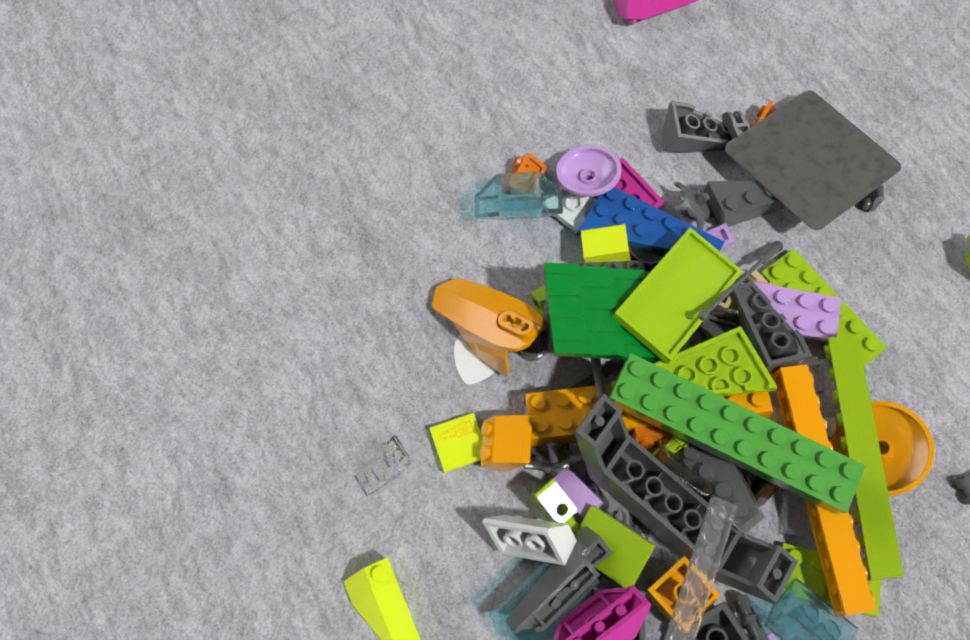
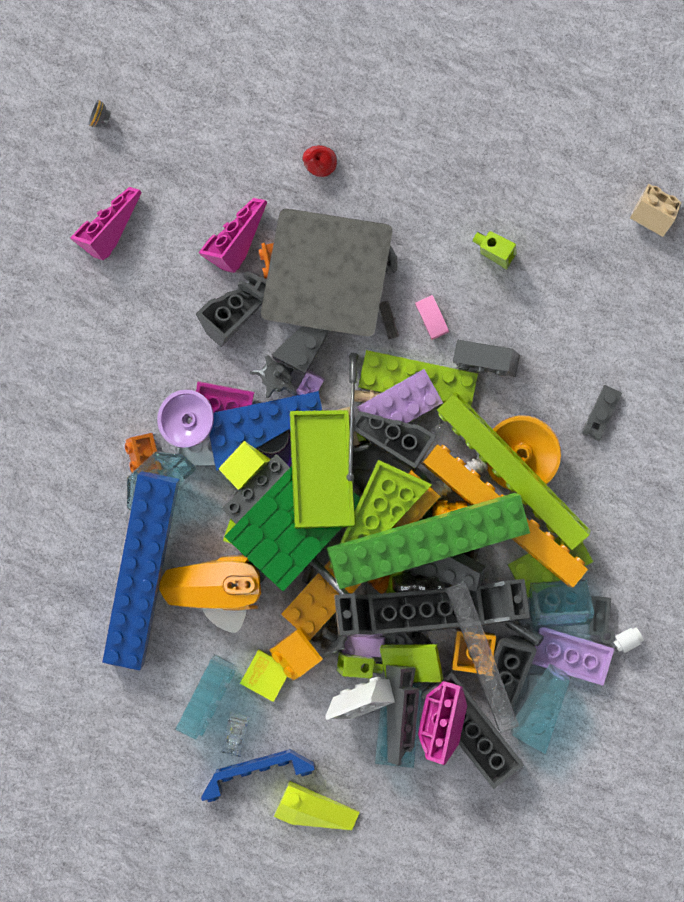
camera: 45 degrees left, 20 degrees up
(317, 498) = (301, 766): none -> blue slope
(389, 407) = (206, 694): none -> clear light blue brick
(437, 253) = (140, 570): none -> blue brick
(744, 87) = (233, 243): none -> dark pink wedge
(834, 242) = (388, 320): none -> clear smoke axle
(870, 83) = (320, 160): none -> red hair
(878, 270) = (432, 317): none -> bright pink slope
(910, 340) = (486, 358): none -> dark grey wedge

